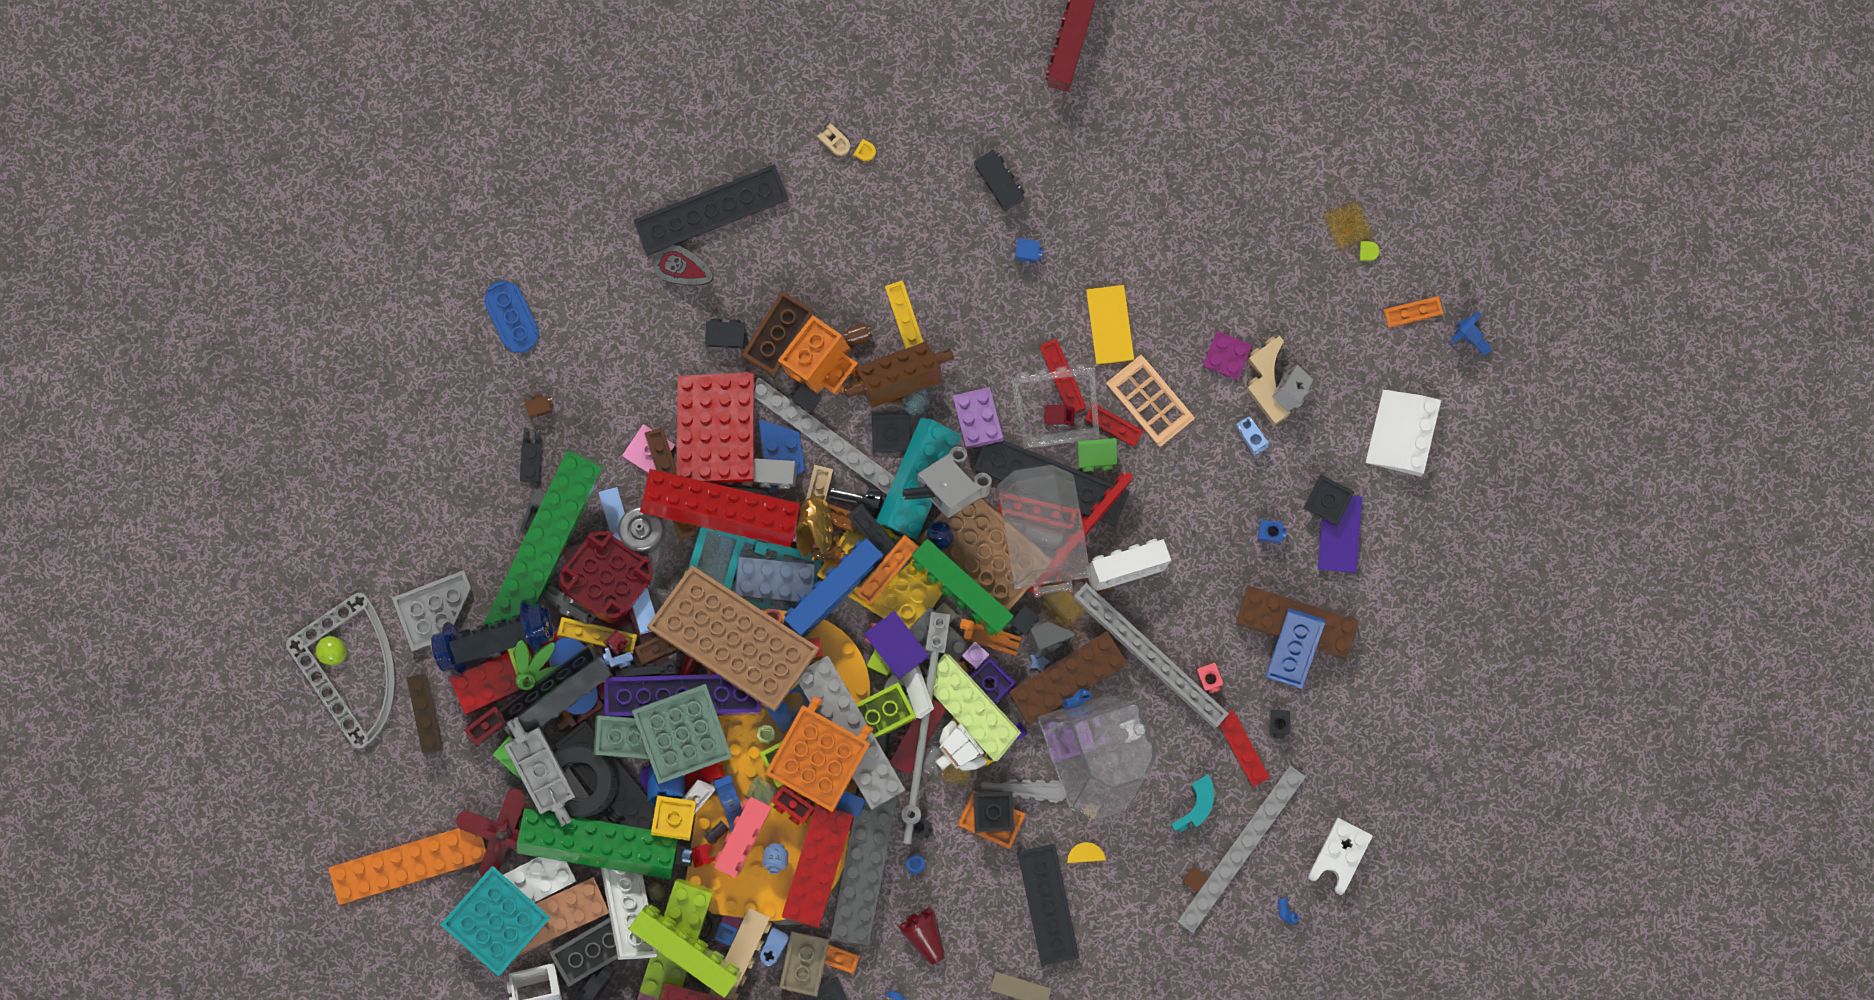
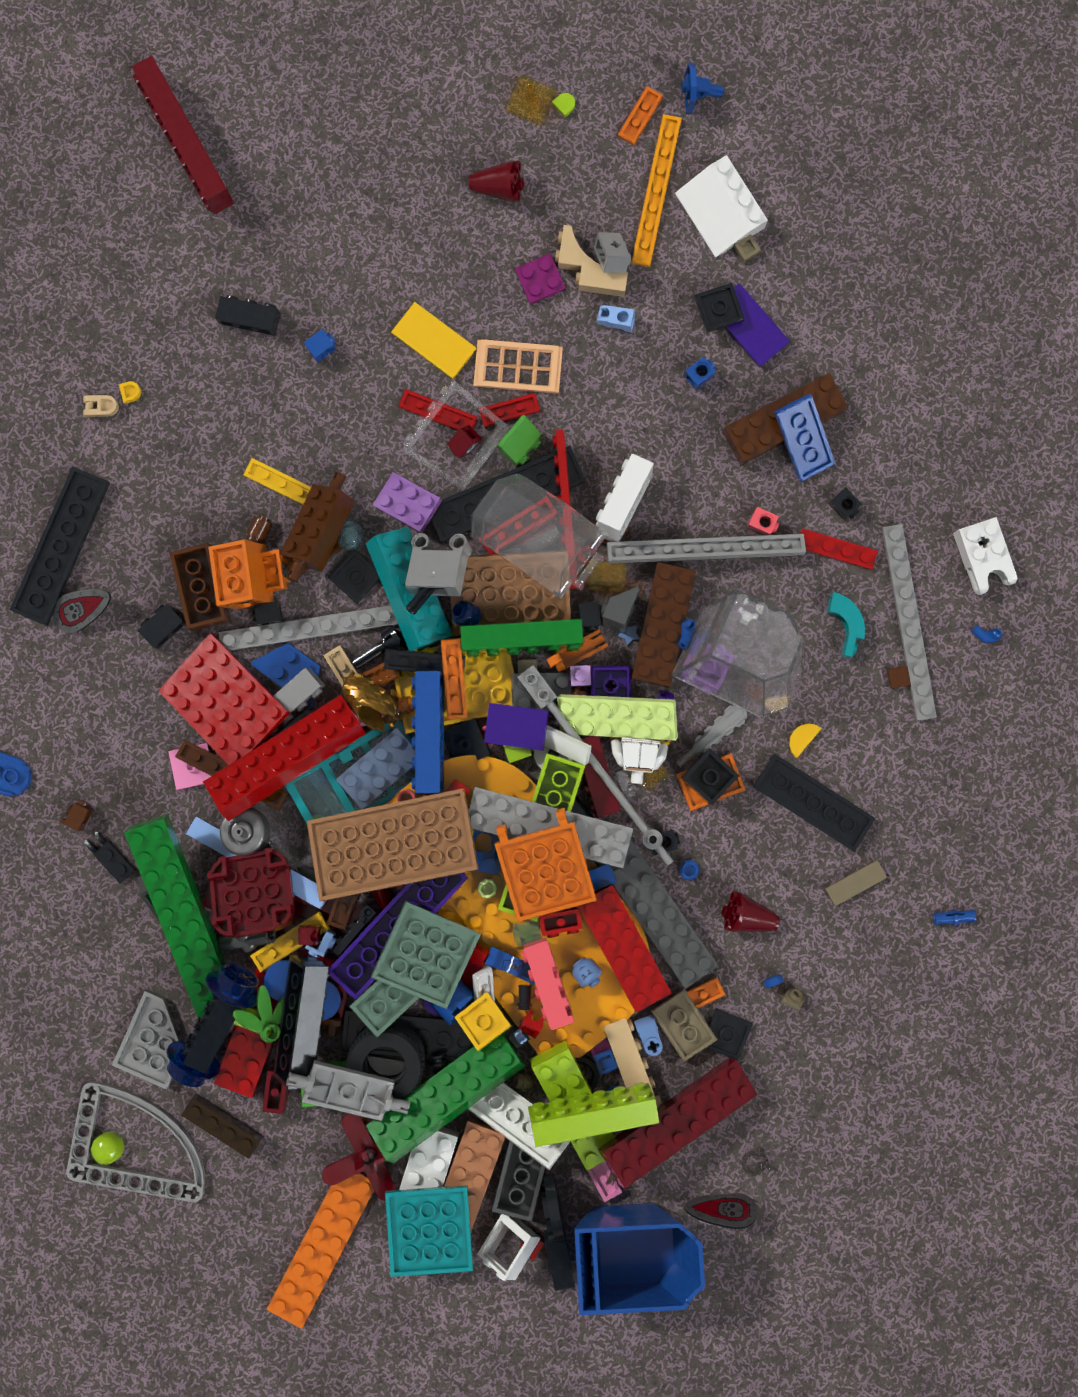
camera: 35 degrees left, 5 degrees up
(853, 621) = (466, 740): none -> black plate
(1266, 261) = (499, 181): none -> dark red cone
(1371, 375) = (656, 190): none -> light orange tile
(1393, 478) = (747, 248): none -> dark tan plate

